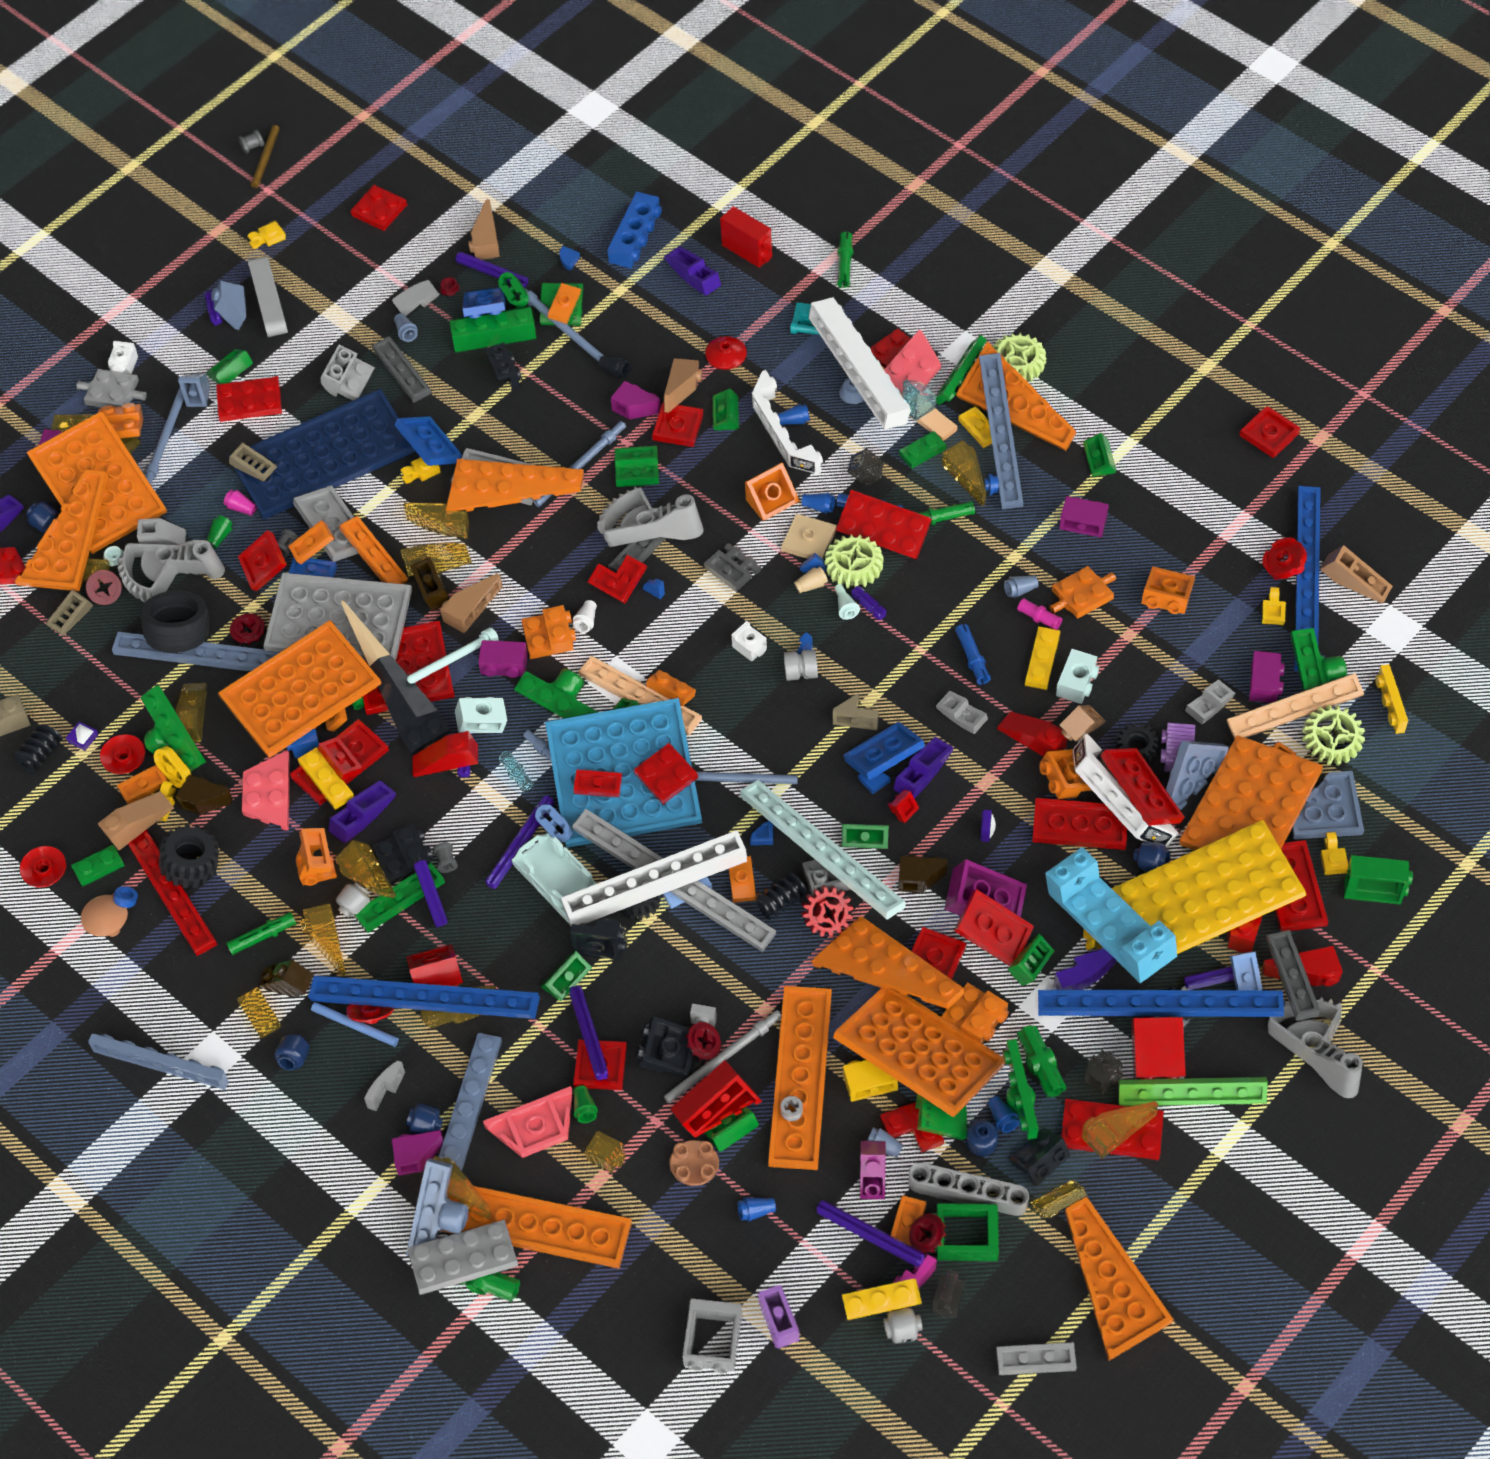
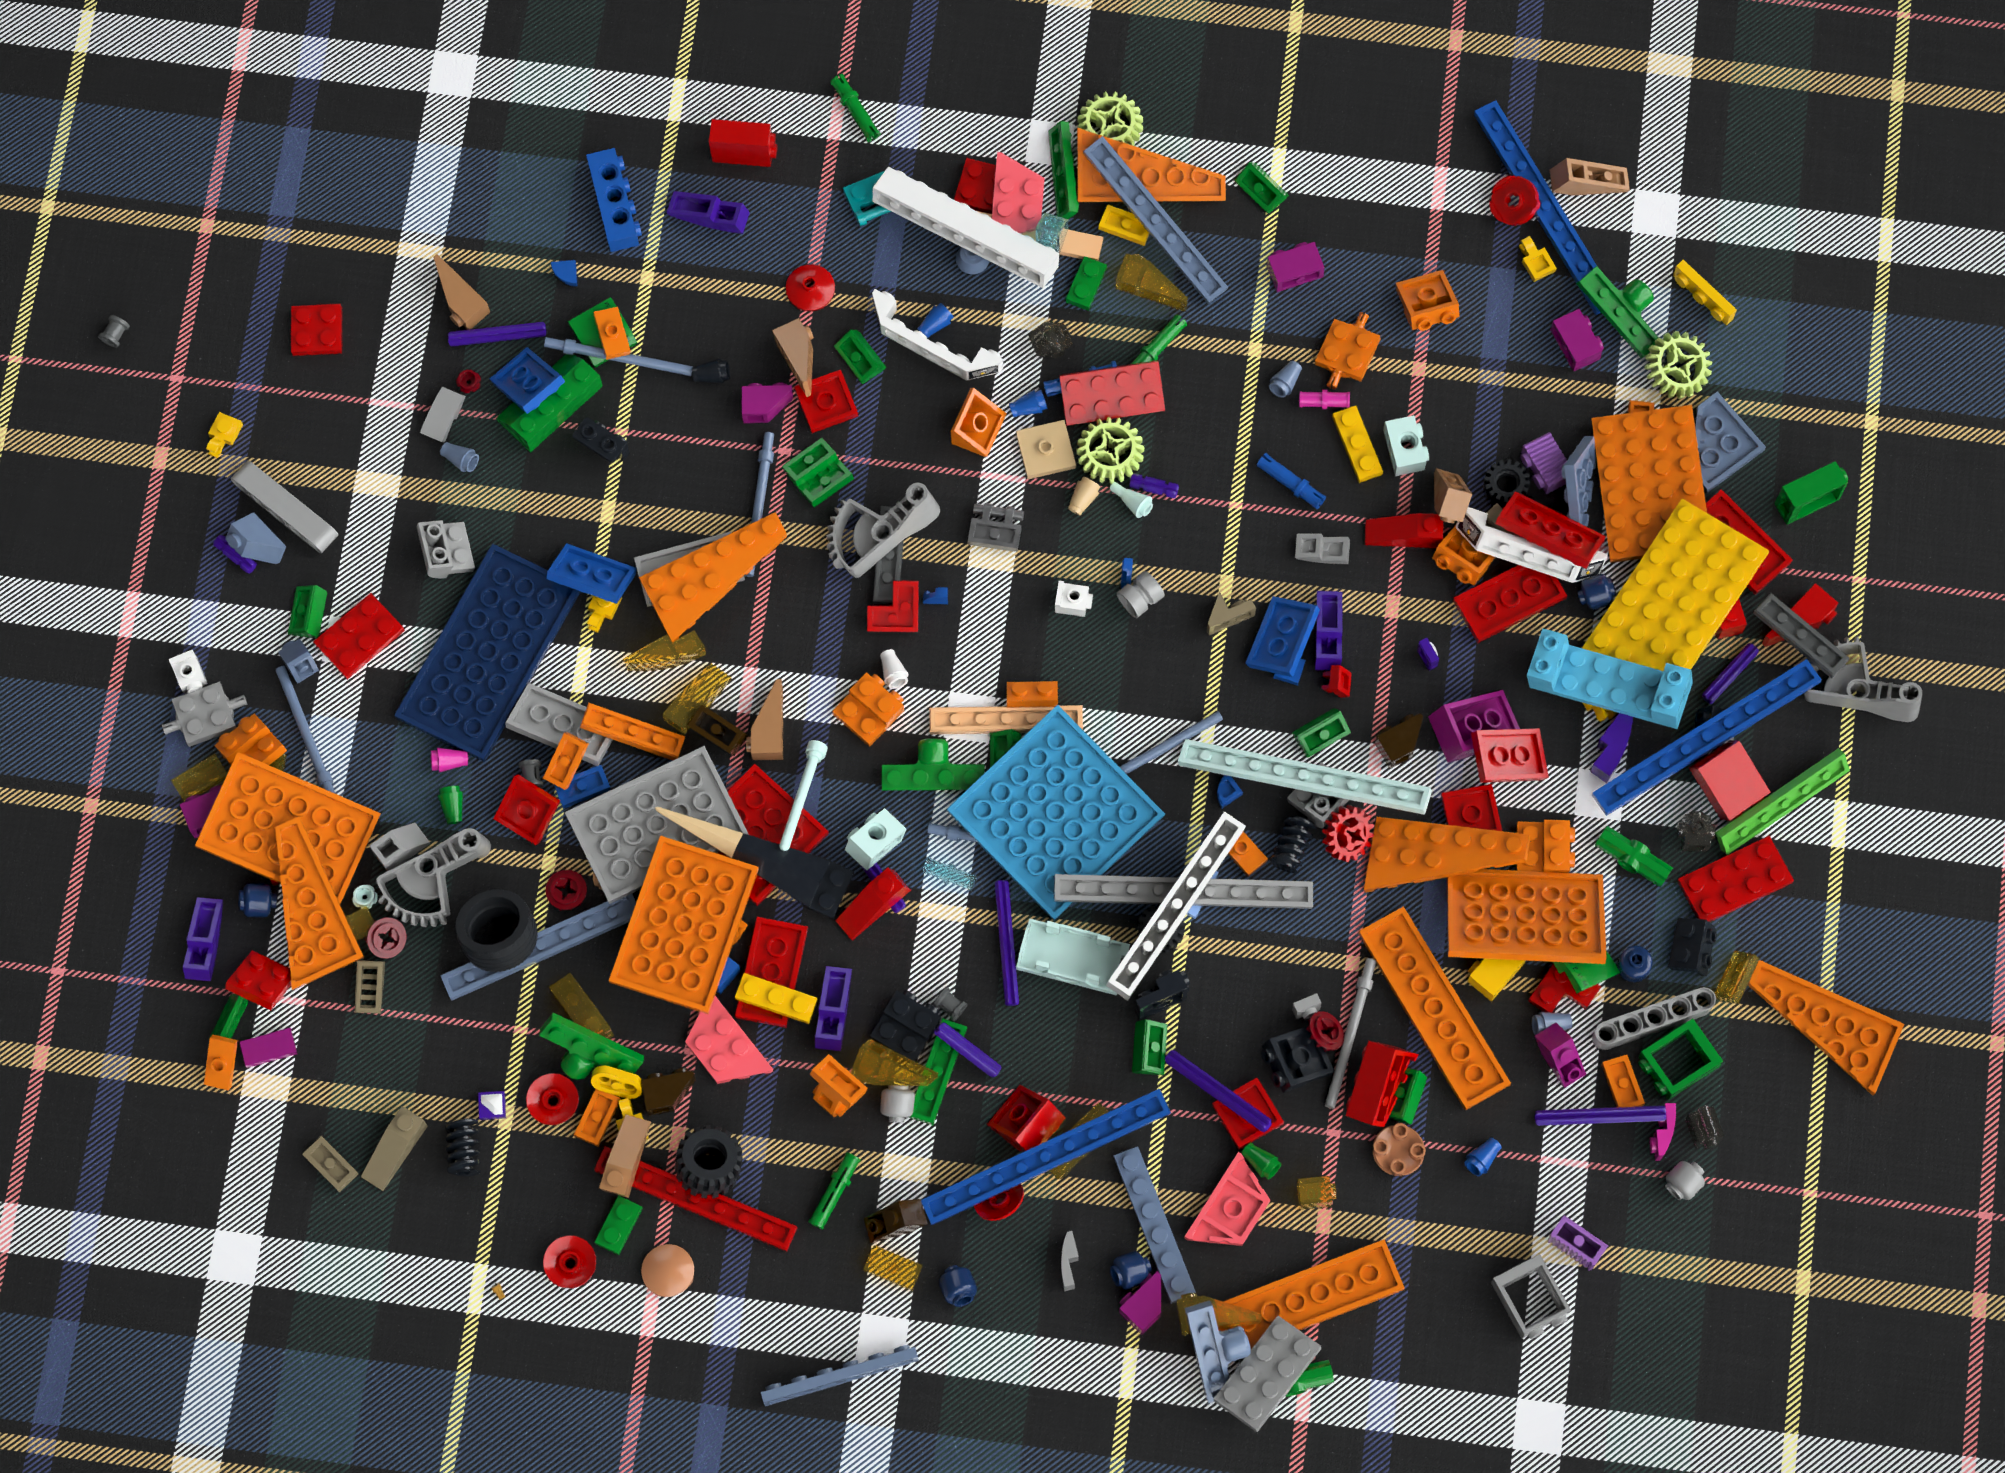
camera: 35 degrees left, 15 degrees up
(125, 897) = (674, 1239): blue tile -> none
(250, 454) = (430, 700): dark tan slope -> none
(265, 156) = (141, 339): pearl gold bar -> none
(322, 931) = (897, 1154): clear yellow slope -> none
(340, 758) = (776, 970): red plate -> none
(359, 1026) = (975, 1223): medium blue bar -> none
(401, 369) = (491, 506): dark grey tile -> none
(503, 658) = (848, 765): magenta brick -> none
(516, 287) = (552, 344): green beam -> none
(557, 820) = (1029, 912): medium blue beam -> none
(597, 783) = (1046, 840): red plate -> none
(666, 773) = (1101, 790): red plate -> none
(795, 1102) = (1454, 1052): light grey bush -> none
(813, 561) = (1072, 476): blue tile -> none
(881, 1299) = (1654, 1169): yellow plate -> none
(917, 1236) = (1644, 1092): dark red gear -> none
(991, 484) = (1183, 283): blue plate -> none
(1003, 1115) = (1635, 929): blue cone -> none
(1020, 1095) = (1641, 902): green plate -> none
(1021, 970) = (1554, 777): green slope -> none
(1036, 1358) = (1814, 1134): light grey plate -> none
(1114, 1127) = (1743, 884): clear yellow slope -> none
(1210, 702) = (1541, 396): light grey slope -> none
(1246, 972) = (1759, 660): medium blue plate -> none
(1270, 431) = (1407, 63): red plate -> none
(1295, 706) = (1626, 357): light nougat tile -> none
(1333, 858) = (1755, 491): yellow plate -> none

